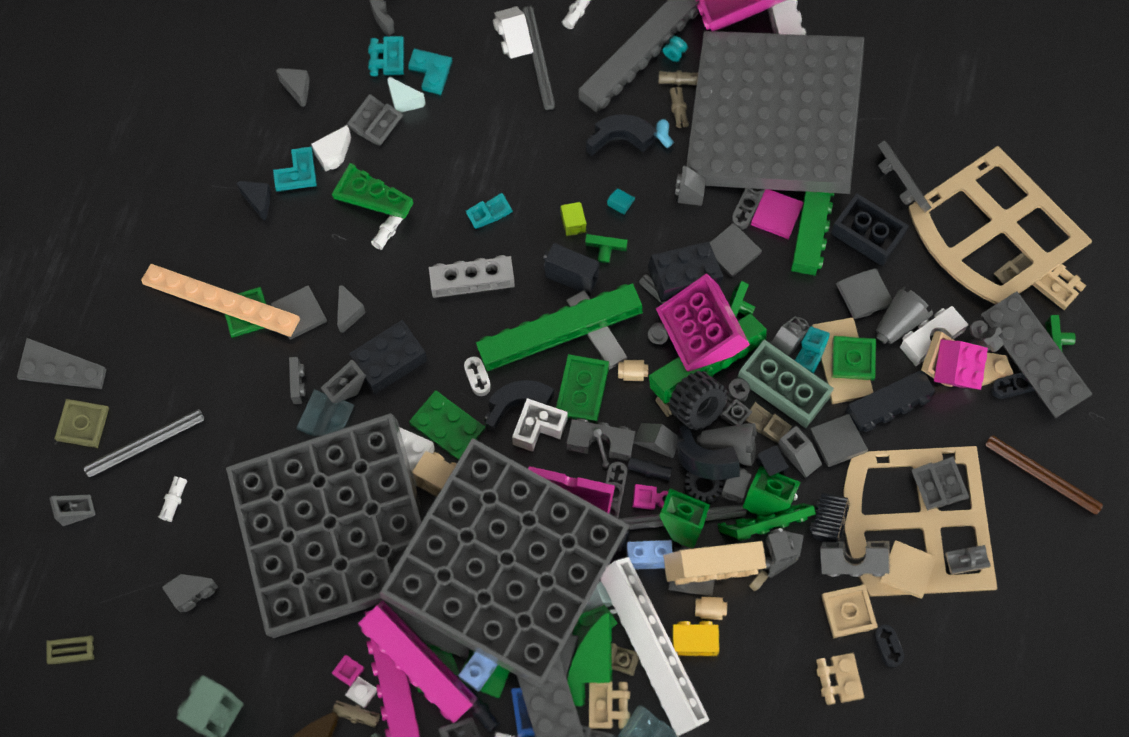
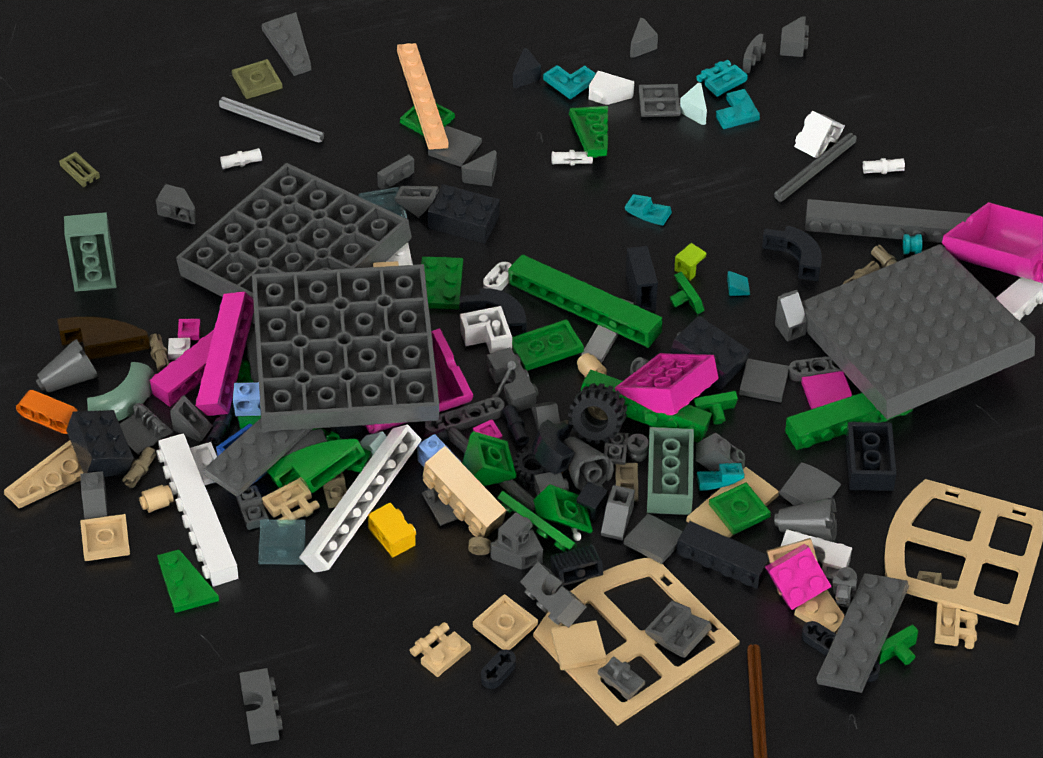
camera: 55 degrees right, 20 degrees down
(72, 508) = (184, 106): dark grey slope -> none
(481, 282) = (579, 227): light grey brick -> none
(662, 133) = (829, 275): medium azure arm -> none
(711, 608) = (428, 526): tan brick -> none
(912, 192) = (951, 449): dark grey hinge -> none

